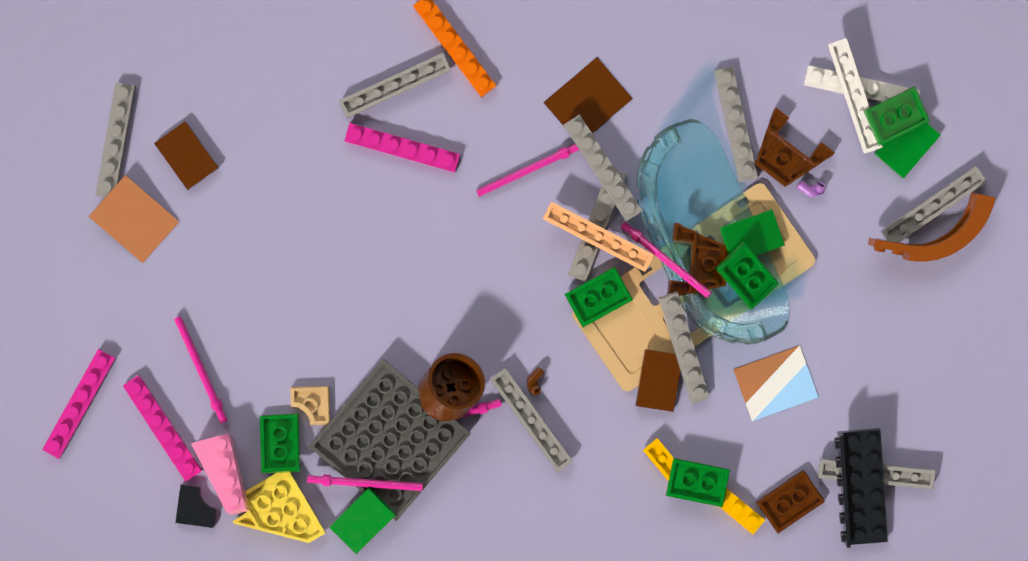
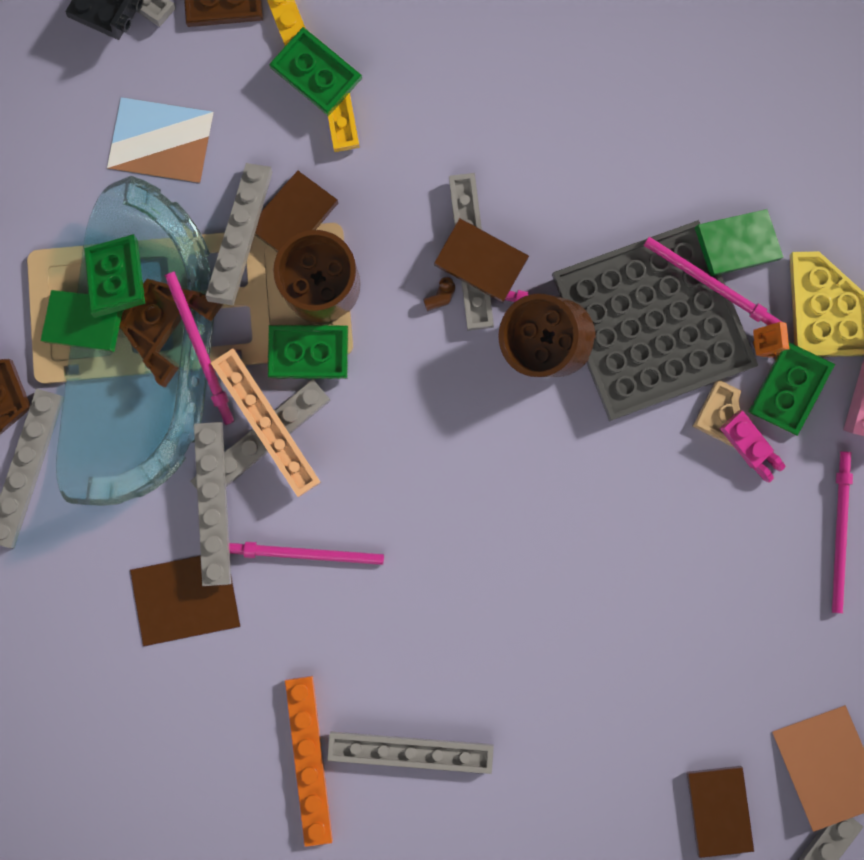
camera: 140 degrees left, 5 degrees down
(286, 393) = (751, 445): none -> dark pink hinge
(309, 466) = (771, 339): none -> orange bracket
(402, 147) = (445, 669): dark pink plate -> none
(520, 416) = (481, 260): none -> reddish brown tile
(630, 353) = (305, 260): none -> reddish brown brick

